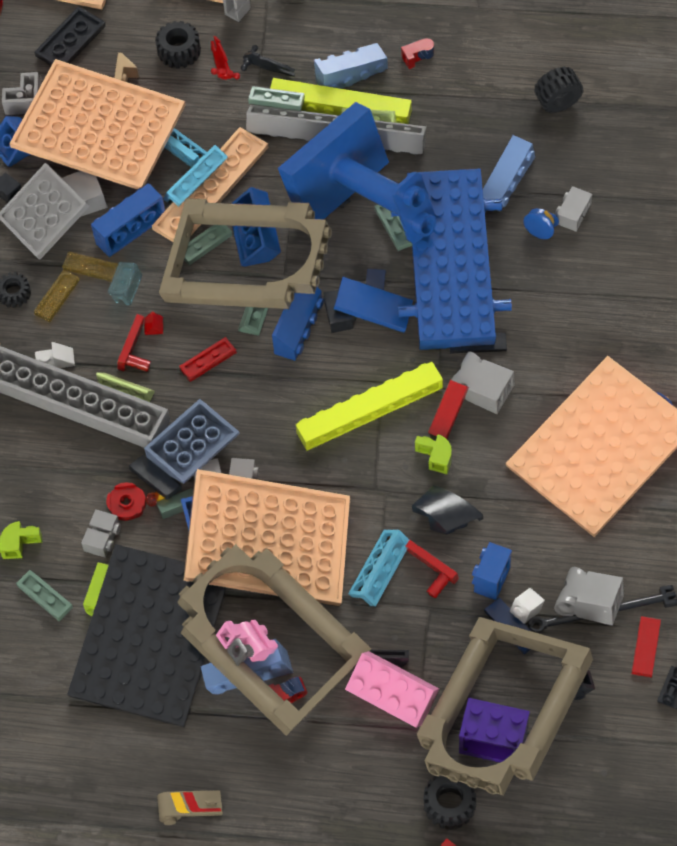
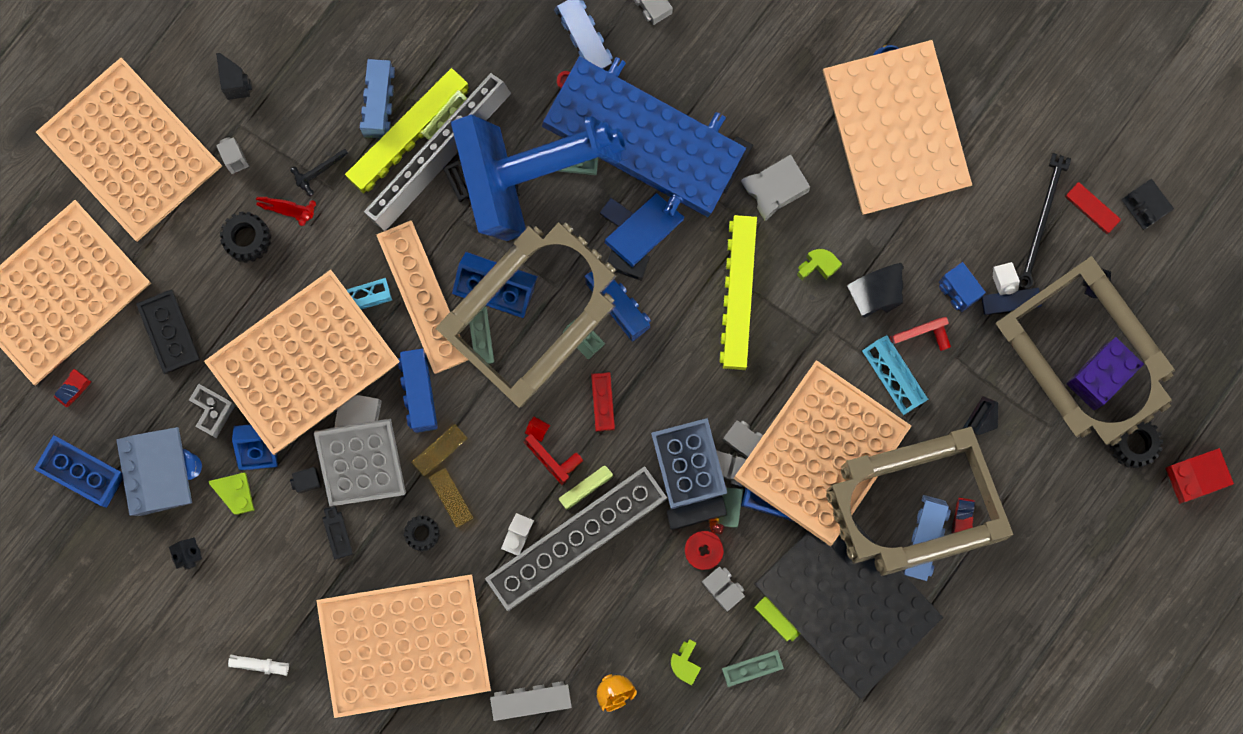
camera: 65 degrees left, 20 degrees up
(125, 68) = (238, 301): tan slope -> none
(125, 282) = (479, 430): clear light blue hinge -> none
(188, 803) = (1016, 651): dark tan door -> none
(196, 176) = (407, 305): medium azure fence -> none
(250, 639) = (923, 520): bright pink hips -> none
(276, 98) = (373, 185): sand green plate -> none
(392, 689) = (1018, 431): bright pink brick -> none
(417, 51) = (396, 23): leg -> none
(448, 409) = (788, 230): red tile -> none
(540, 223) = (652, 39): blue piece -> none
(590, 596) = (1030, 223): light grey piece -> none

